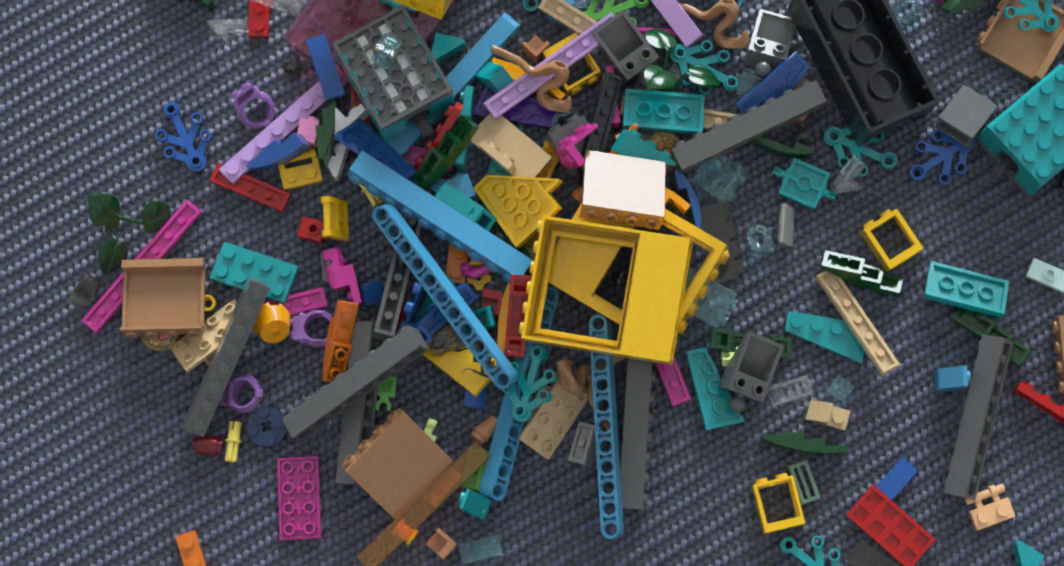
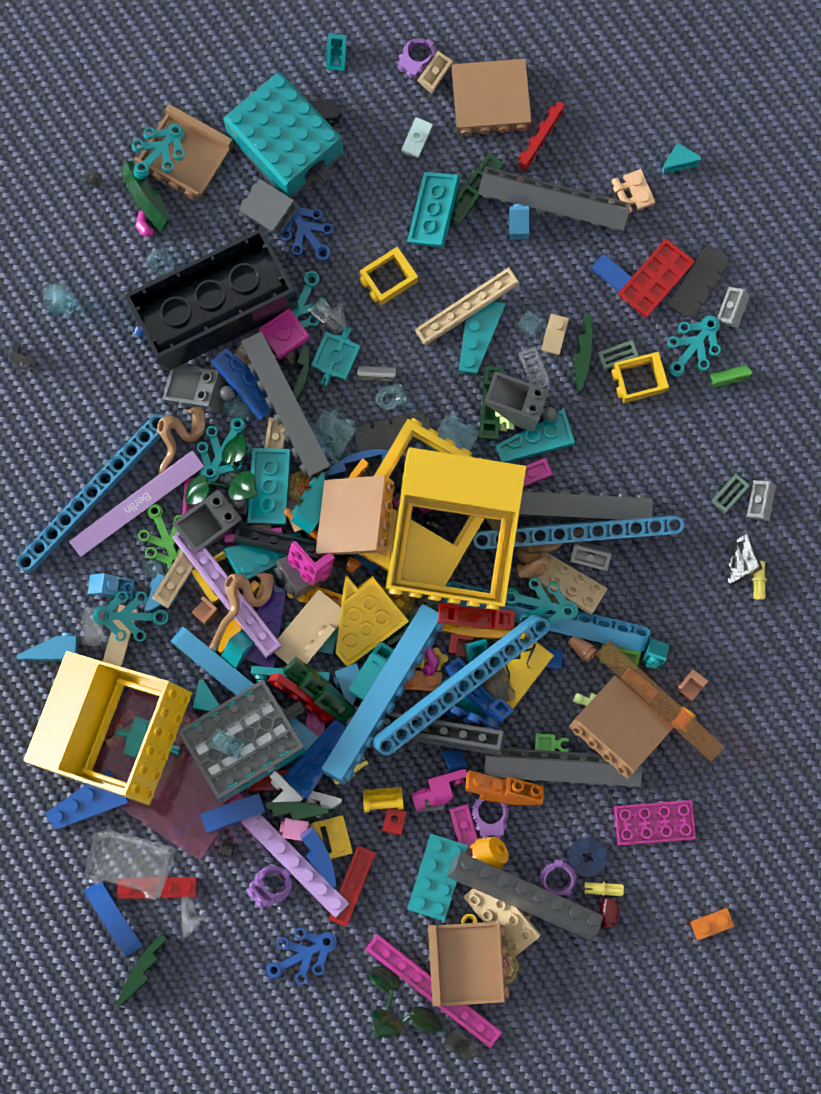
camera: 90 degrees left, 0 degrees up
(355, 383) = (548, 768): dark grey brick -> none
(480, 550) = (695, 648): clear light blue slope -> none
(583, 91) = (252, 560): none -> teal wing
(827, 129) = (284, 333): none -> dark pink tile
(864, 275) = (421, 303): dark green slope -> none

